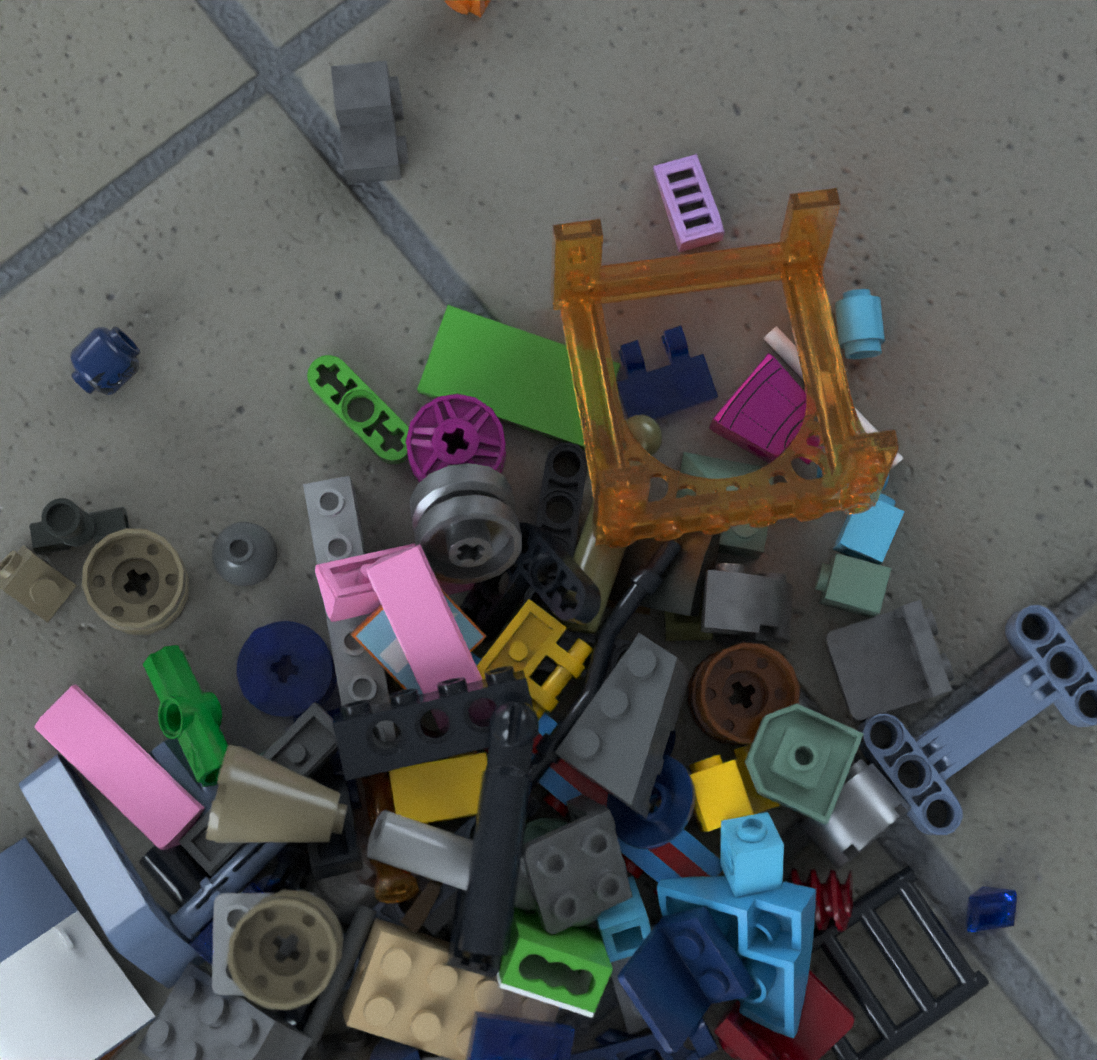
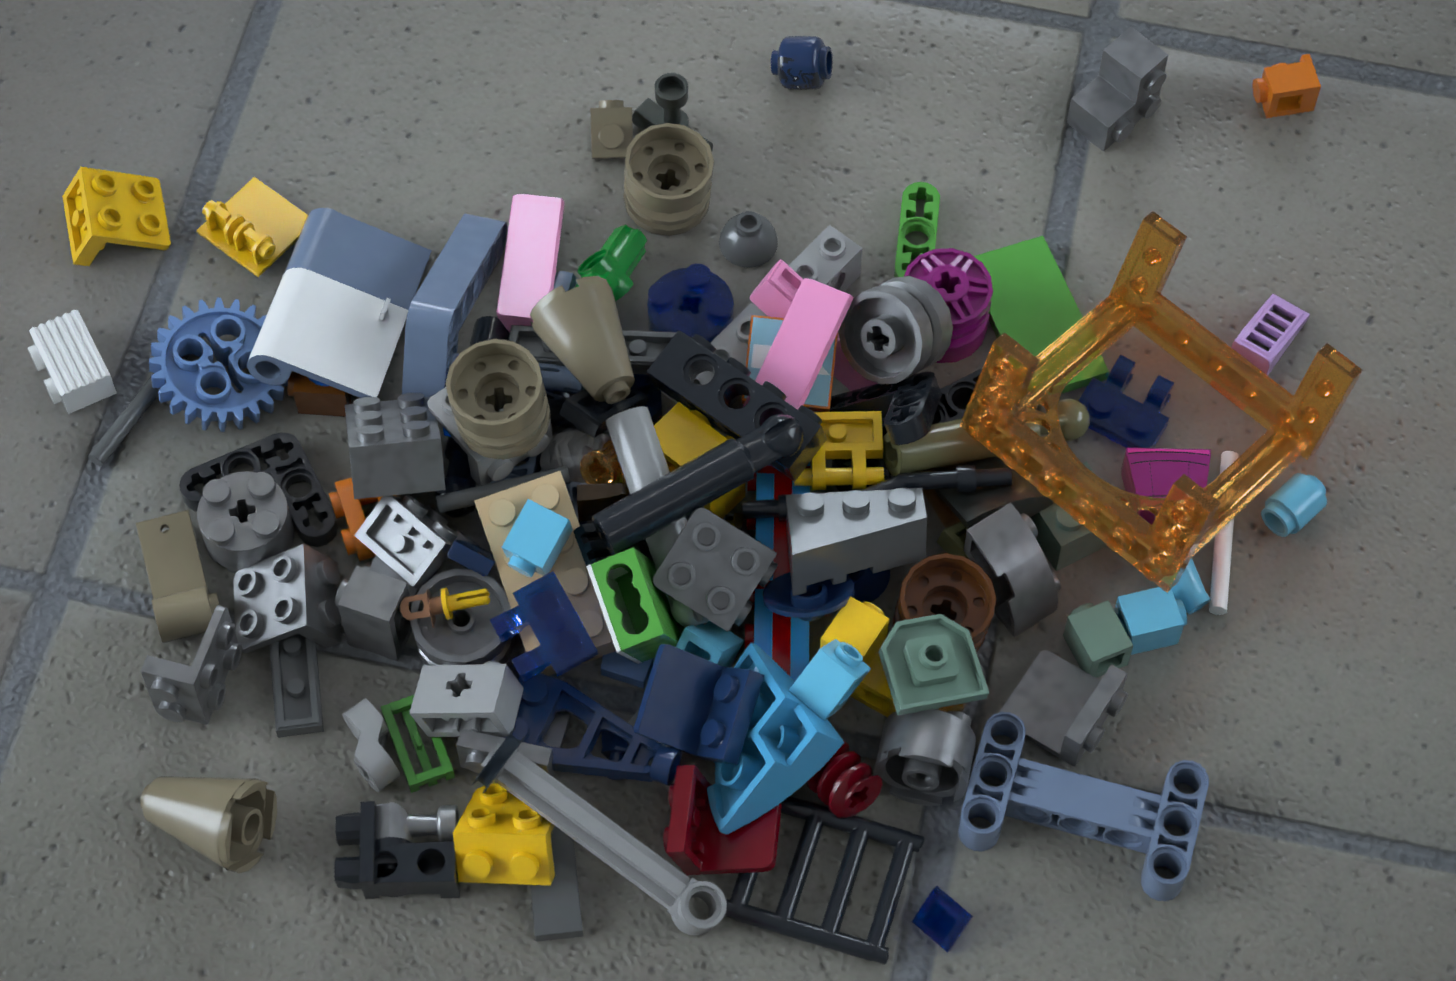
camera: 55 degrees right, 20 degrees down
(438, 1009) = (536, 539): none -> medium azure brick

